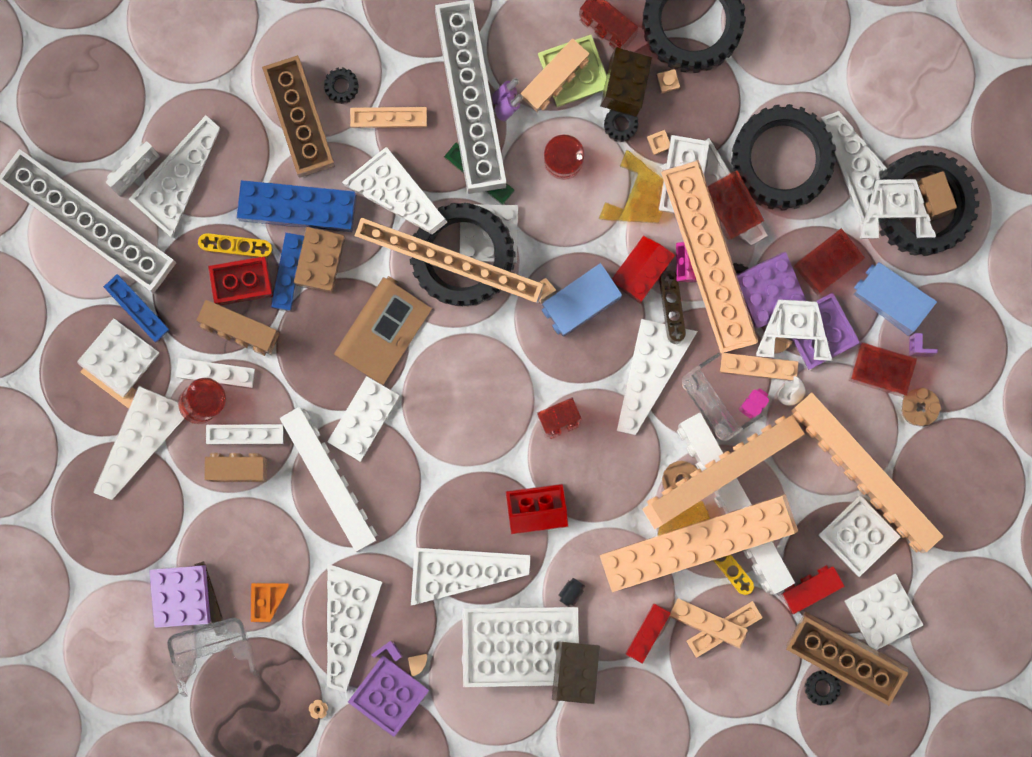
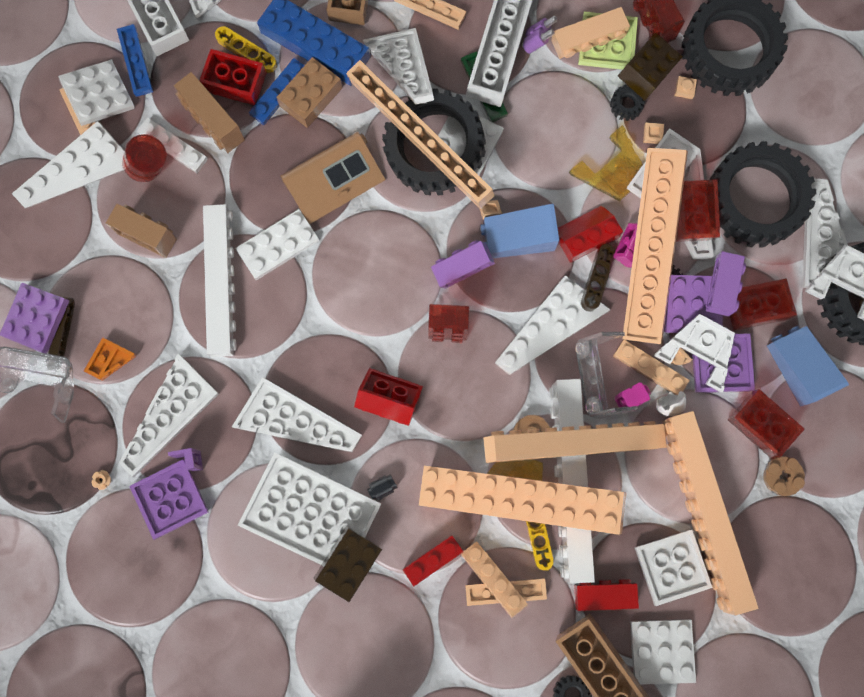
camera: 25 degrees right, 5 degrees down
(245, 434) = (167, 207): white plate -> none
(417, 663) = (210, 483): light nougat tile -> none
(544, 356) = (462, 264): none -> medium lavender brick
(563, 157) = (564, 103): clear red wheel -> none
(789, 262) = (726, 284): none -> medium lavender brick
(916, 346) = (808, 418): medium lavender panel -> none

